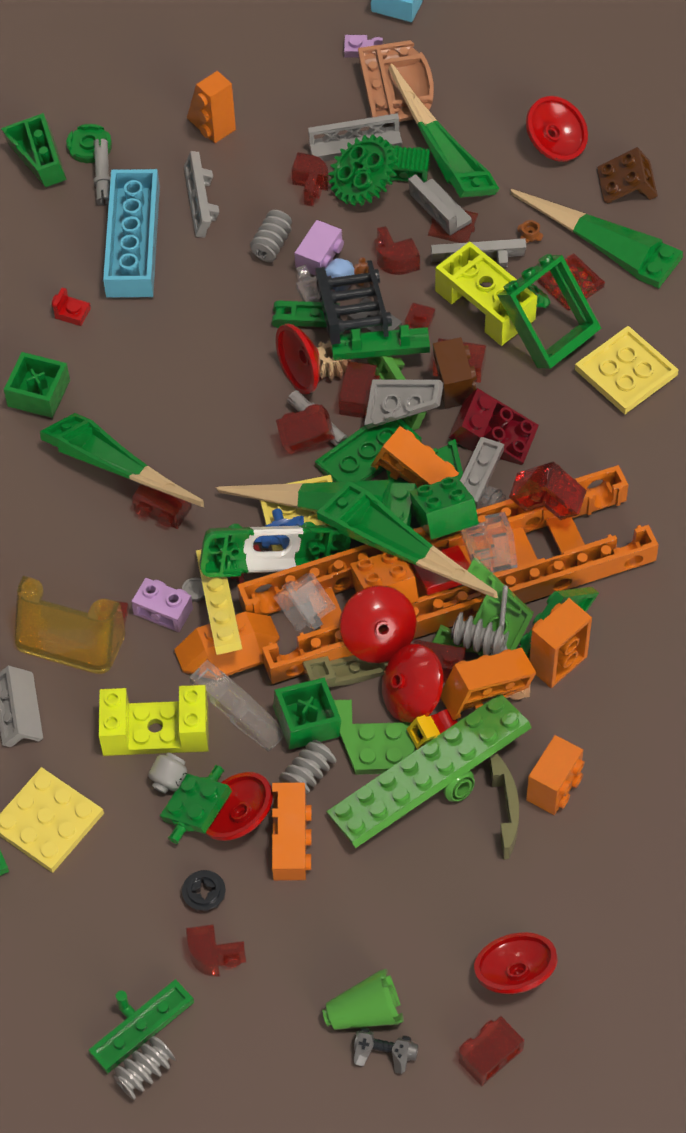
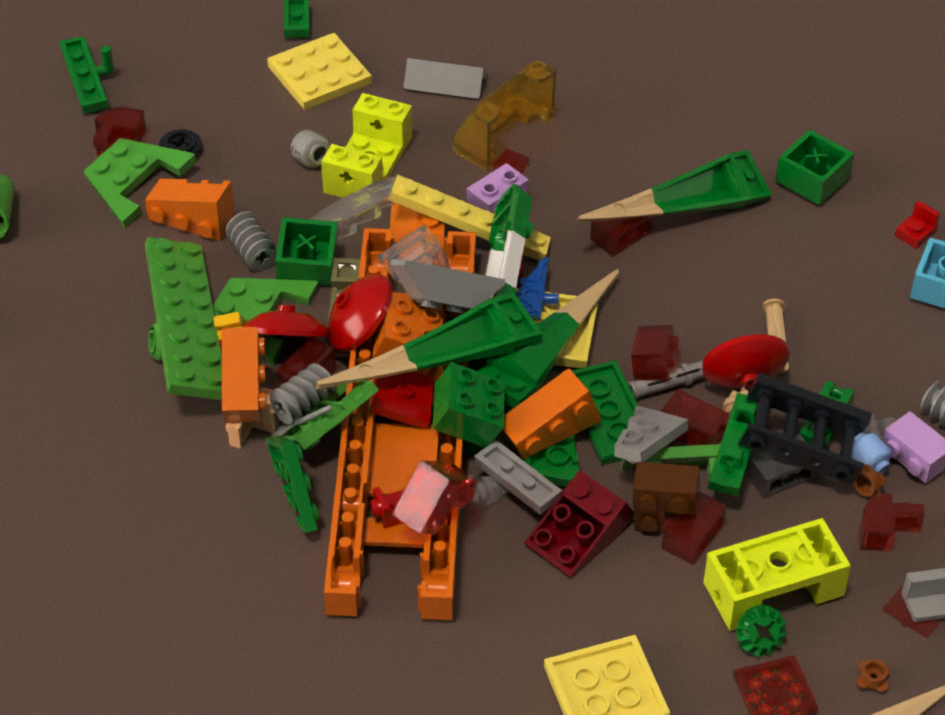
camera: 110 degrees right, 10 degrees down
(143, 1066) = (43, 60): light grey piece -> none
(195, 804) = (266, 158): green plate -> none
(238, 366) = (775, 323): none -> tan axle
(244, 808) = (249, 177): red dish -> none
(259, 922) = (126, 167): none -> bright green wing
(332, 558) = (444, 285): none -> light grey wedge
(420, 316) = (780, 517): clear red plate -> none
(491, 543) = (401, 432): clear plate -> none
(494, 249) = (850, 626): light grey hinge -> none
(502, 777) = (114, 376): olive slope -> none
(551, 538) = (384, 505): none -> red bracket
(555, 775) = (113, 408): orange brick -> none
(560, 642) = (252, 454): orange brick -> none
(573, 295) = (683, 581): green window -> none

